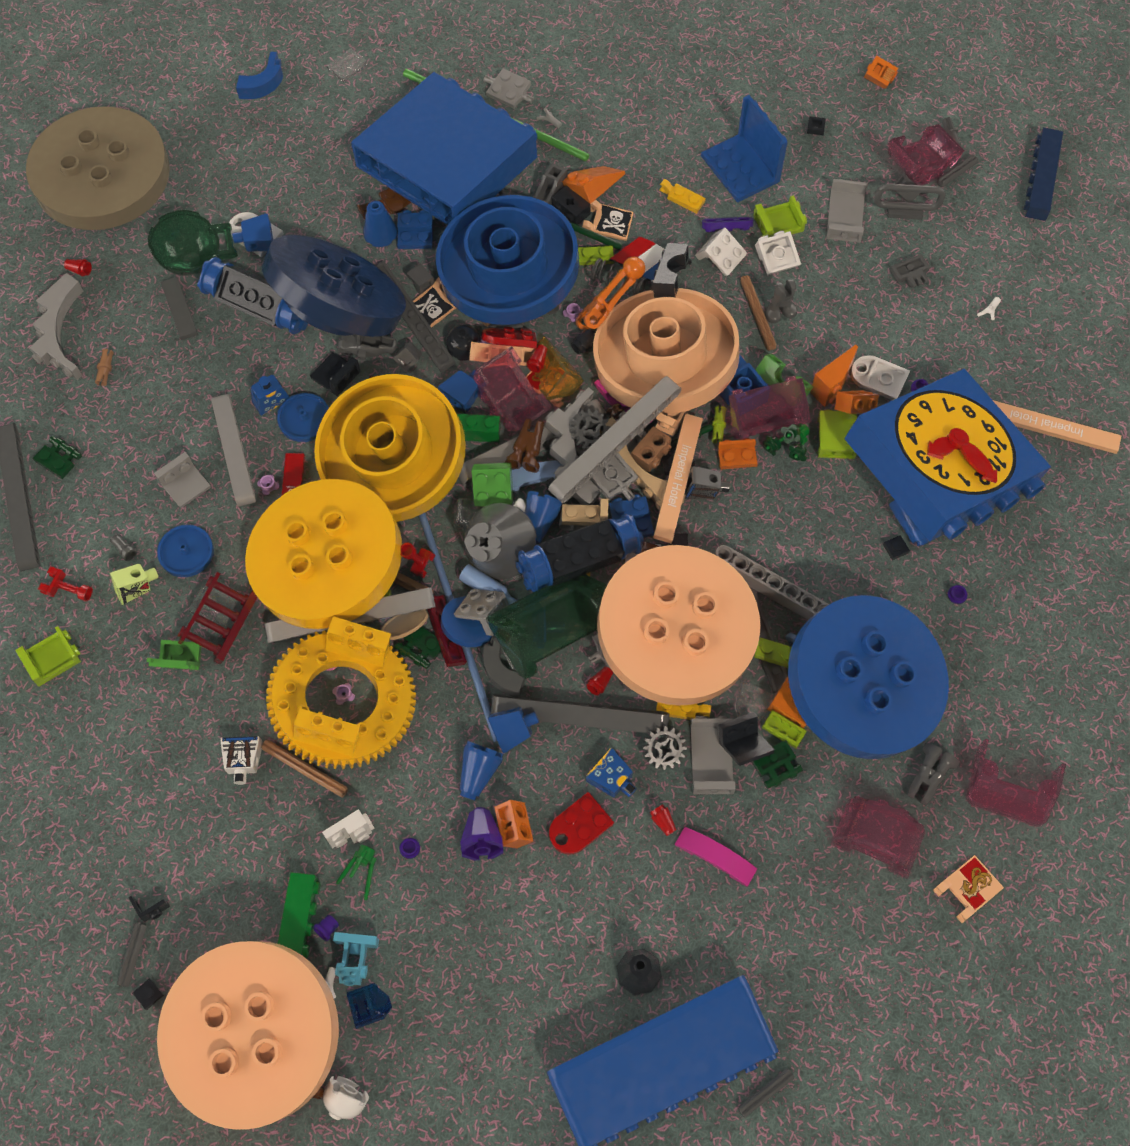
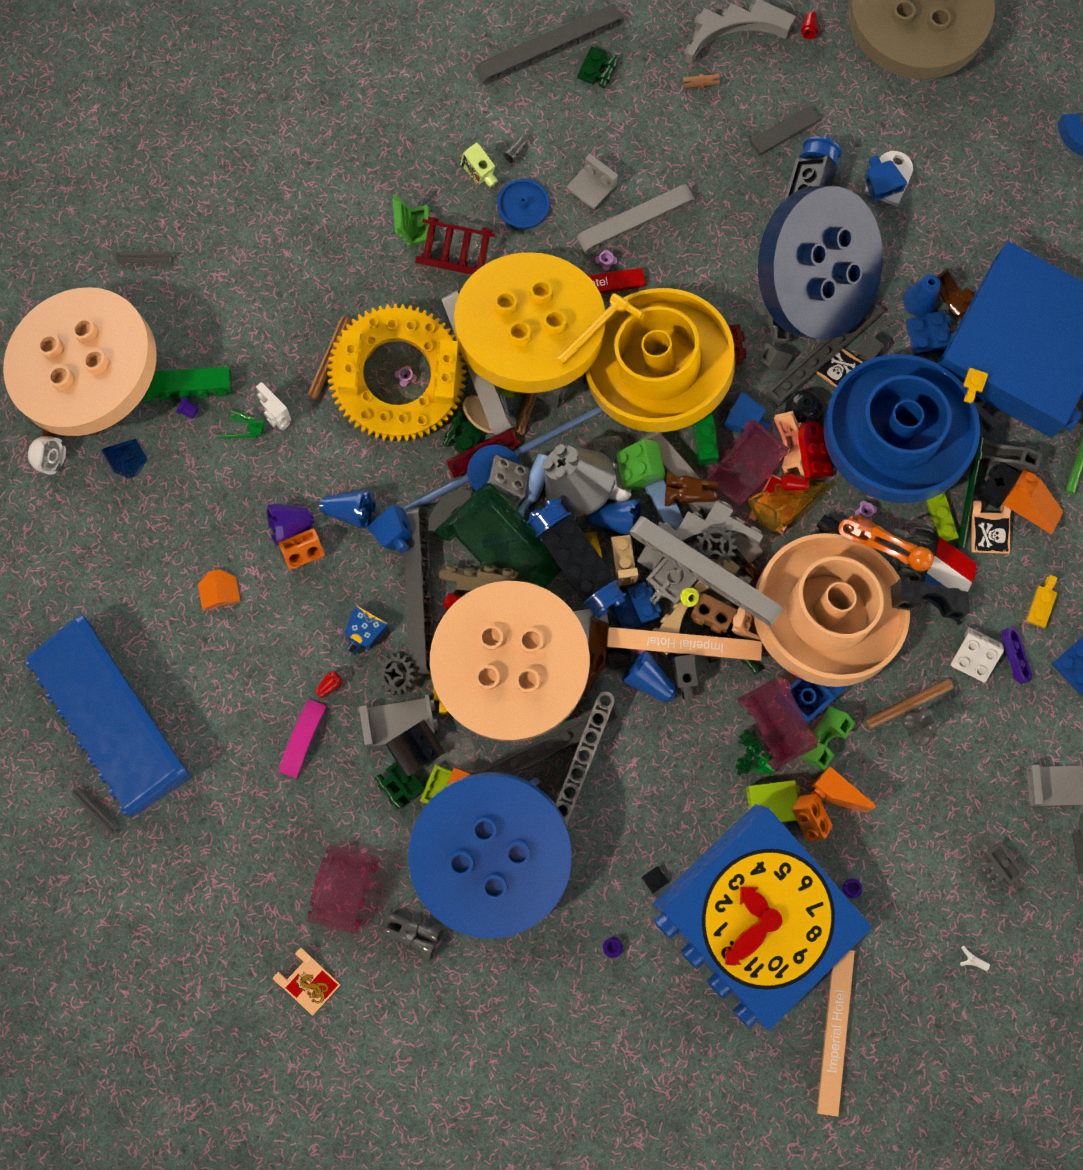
camera: 75 degrees right, 10 degrees up
(49, 657) = (396, 116): lime panel -> none
(83, 592) = (464, 127): red bar -> none
(148, 994) = (113, 279): black plate -> none
(151, 913) = (180, 264): black bracket -> none
(187, 240) = (852, 116): clear green windscreen -> none
(241, 756) = (329, 301): torso -> none
(268, 394) = (700, 235): blue torso -> none
(301, 416) = (687, 272): blue piece -> none
(329, 465) = (617, 303): none -> yellow bar
(330, 979) = (141, 422): white bar -> none
(336, 373) = (740, 293): black bracket -> none
(354, 945) = (151, 433): medium azure tile -> none
(409, 848) = (269, 464): dark purple plate -> none
(420, 560) = (545, 414): red bar -> none
(482, 189) = (974, 382): none -> yellow plate
(539, 923) = (218, 589): none -> orange slope
(580, 824) = (314, 611): red plate -> none
(581, 645) = (470, 579): none -> dark tan slope
(634, 462) = (685, 595): none -> neon yellow plate
(637, 980) = (186, 684): black cone -> none
(703, 516) = (649, 678): none -> blue cone
(719, 424) = (758, 679): lime pin -> none
(737, 454) = (727, 704): orange bracket -> none
(773, 652) = (514, 761): lime plate -> none
(777, 252) = (989, 714): white plate -> none
(779, 218) = (1036, 712): lime panel -> none
(880, 376) = (857, 845): white tile -> none
(1010, 799) = (395, 1013): clear pink windscreen -> none

